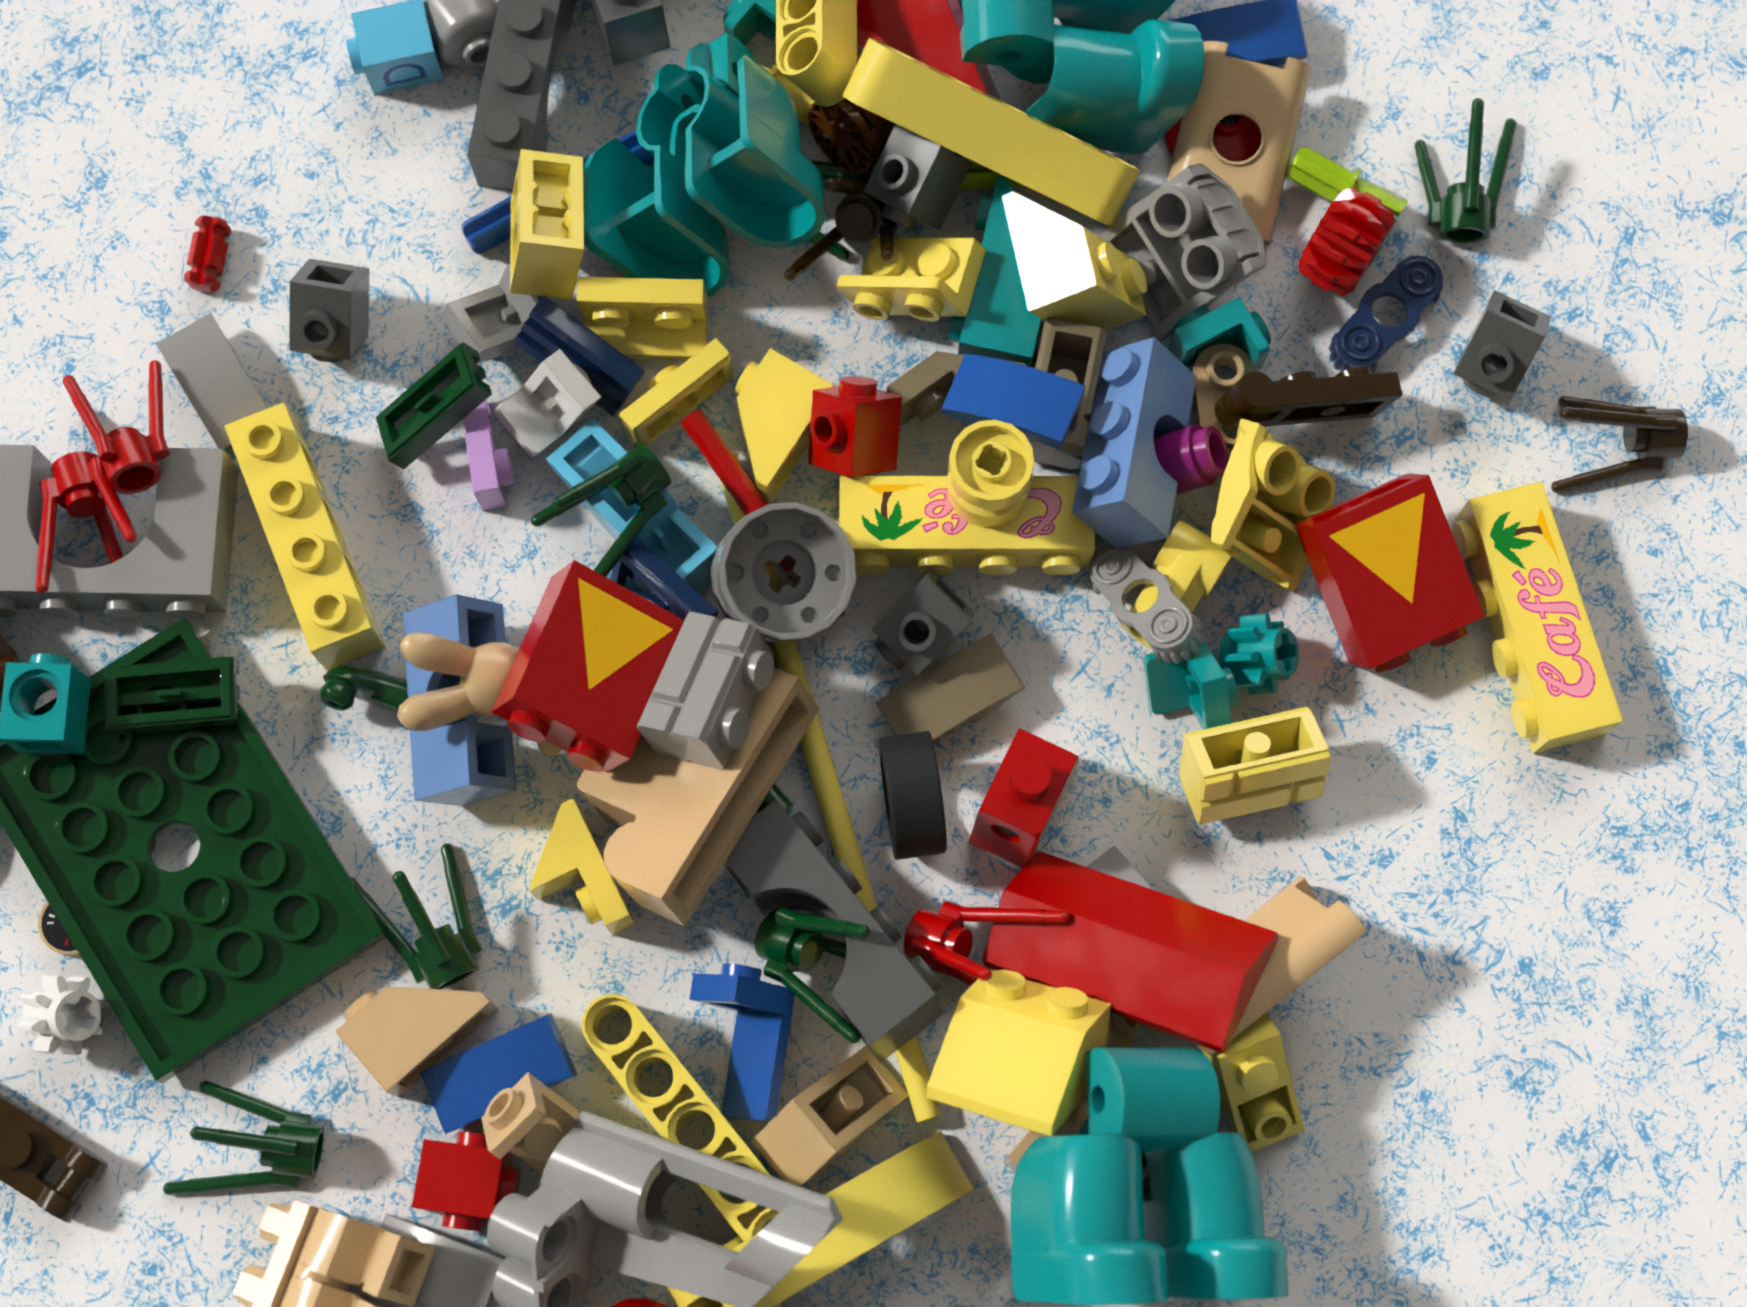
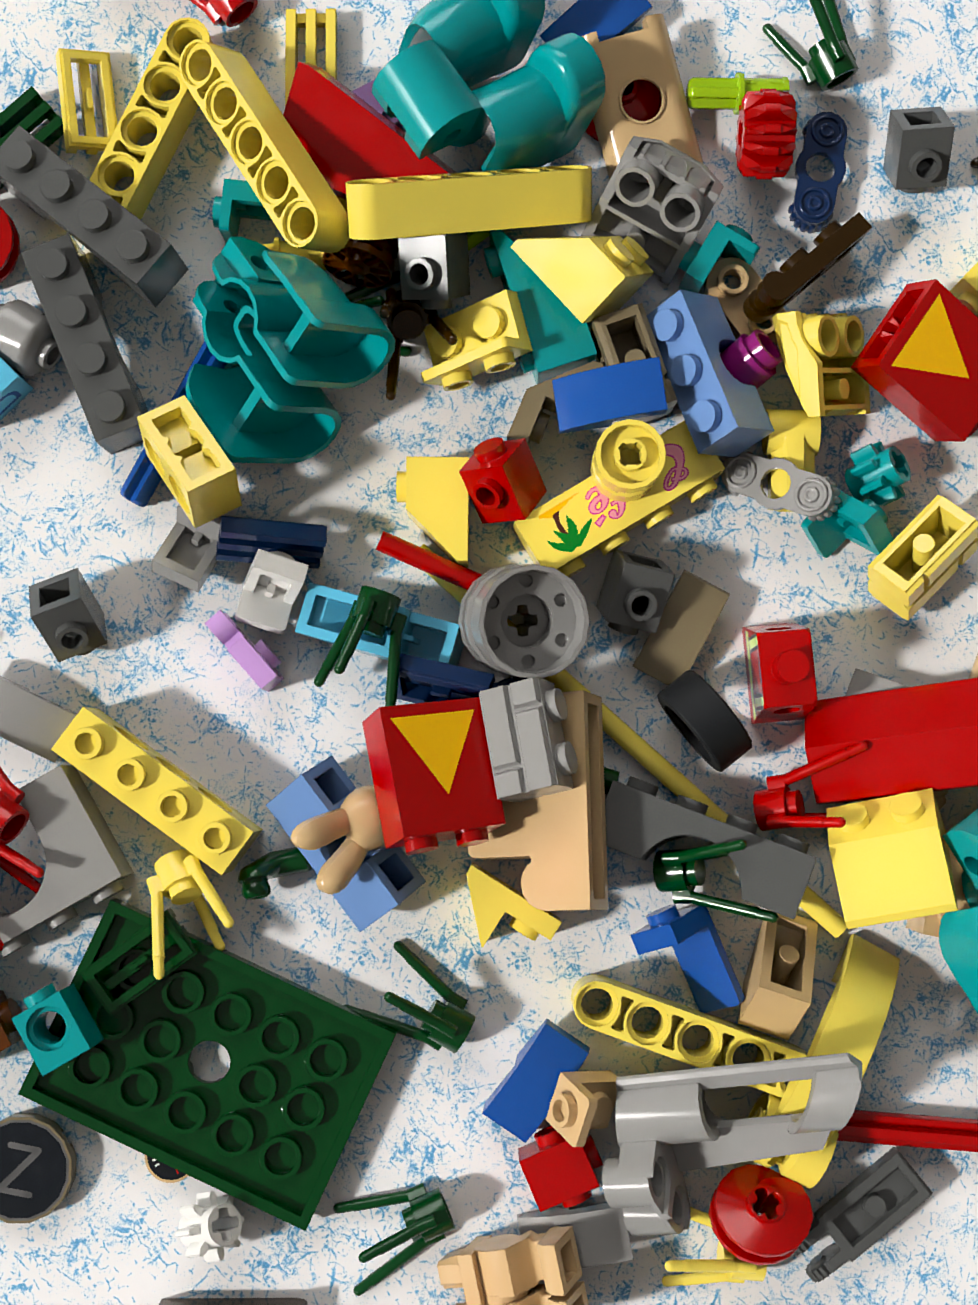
camera: 30 degrees left, 10 degrees up
(267, 644) = (183, 881): none -> light yellow plant
(410, 1030) = (456, 1089): tan slope -> none
(433, 405) = (195, 647): dark green tile -> none
(646, 314) = (300, 485): light yellow bracket -> none
(676, 393) = (354, 527): light yellow plate -> none

